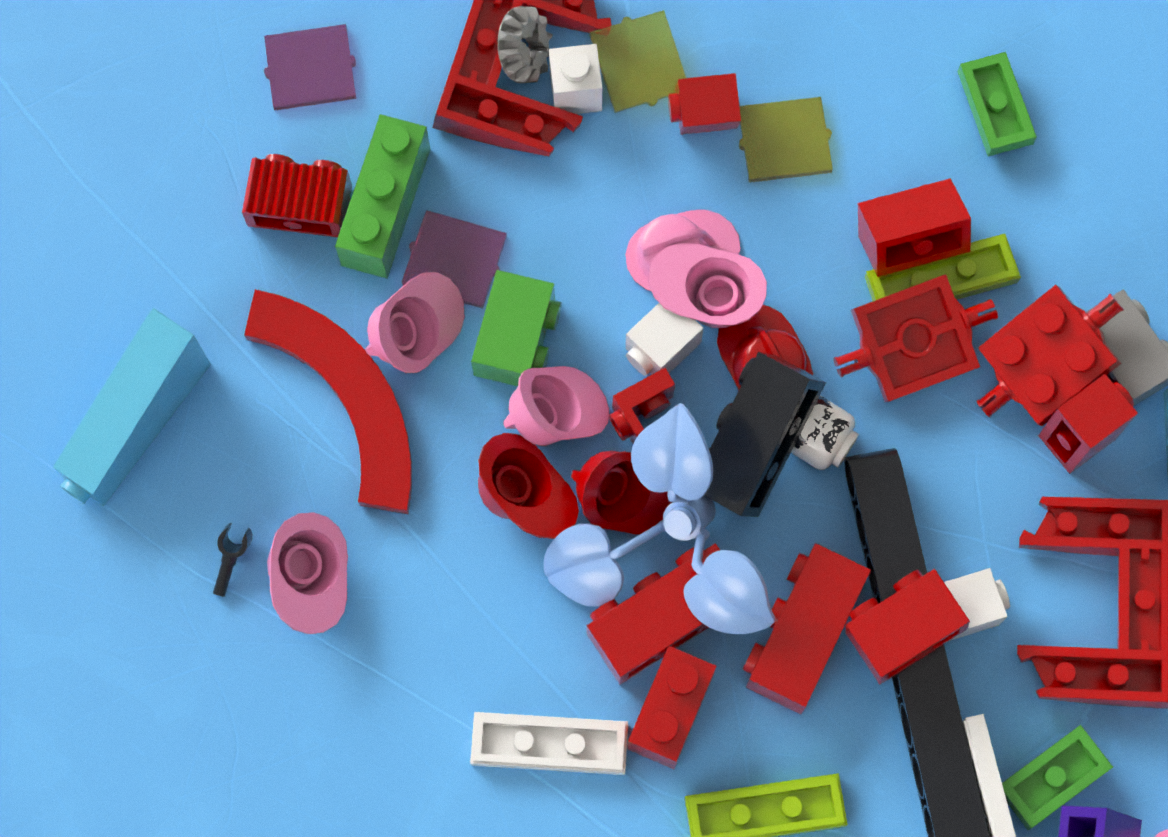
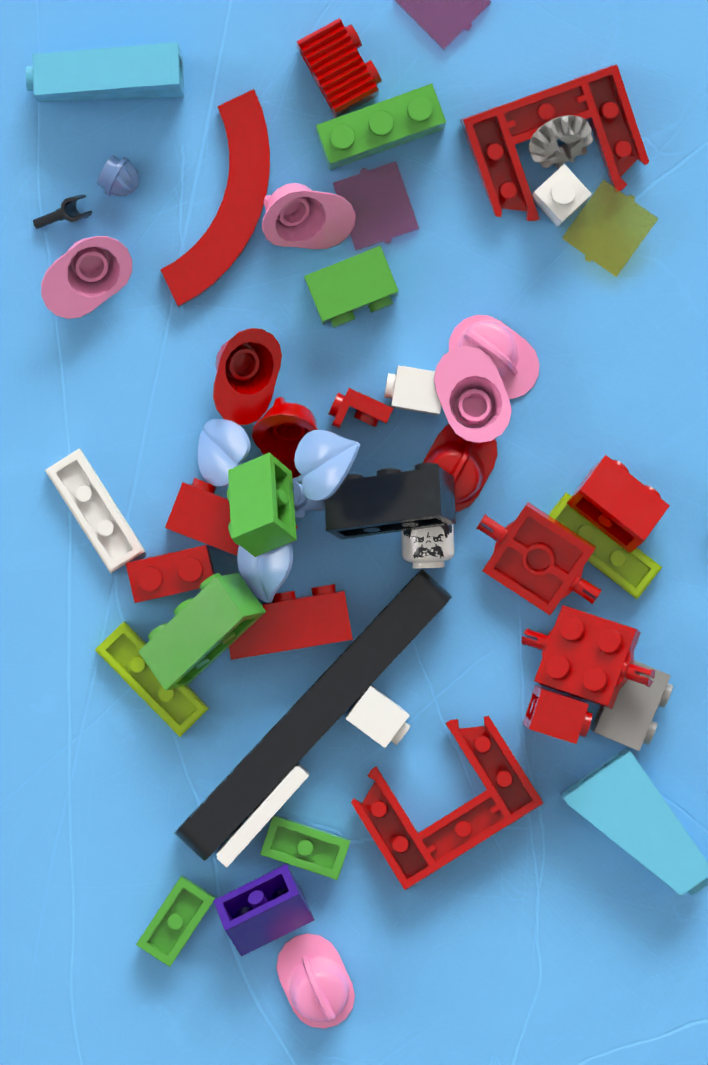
camera: 55 degrees right, 15 degrees up
(237, 476) = (118, 177): none -> medium blue plate
(556, 405) = (319, 355): bright pink piece -> none
(670, 554) = (261, 505): none -> bright green brick
(705, 104) = (607, 298): red brick -> none
(753, 713) = (201, 630): none -> bright green brick
(785, 139) = (626, 369): clear yellow piece -> none
(906, 624) = (327, 688): red brick -> none

